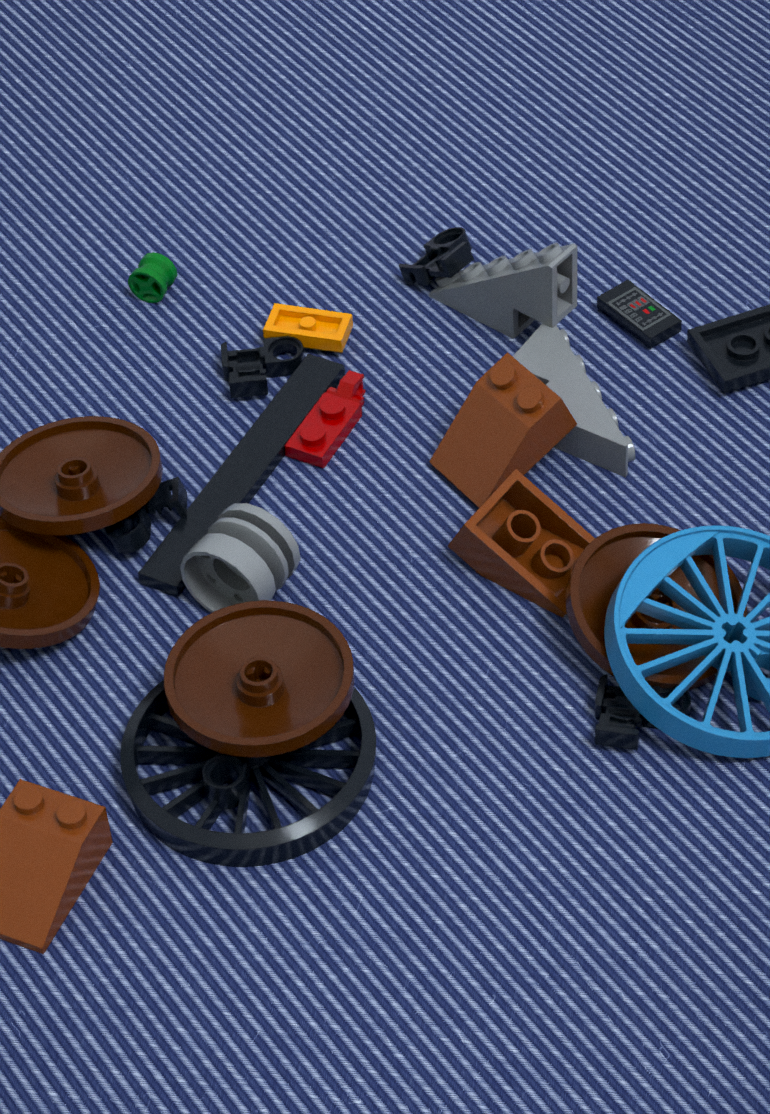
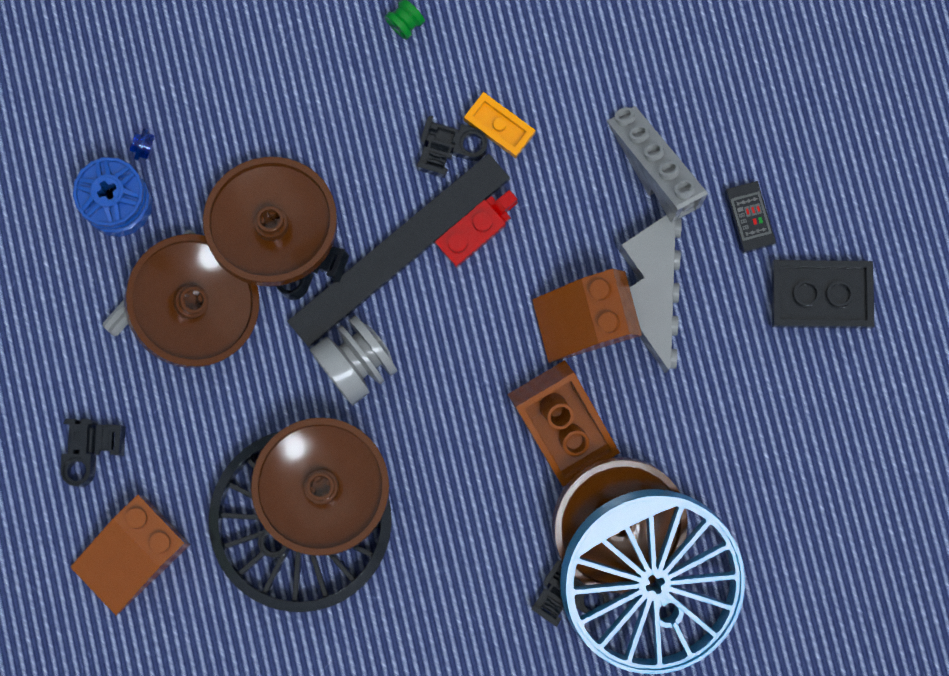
camera: 20 degrees right, 35 degrees up
(444, 257) = (623, 97): black piece -> none

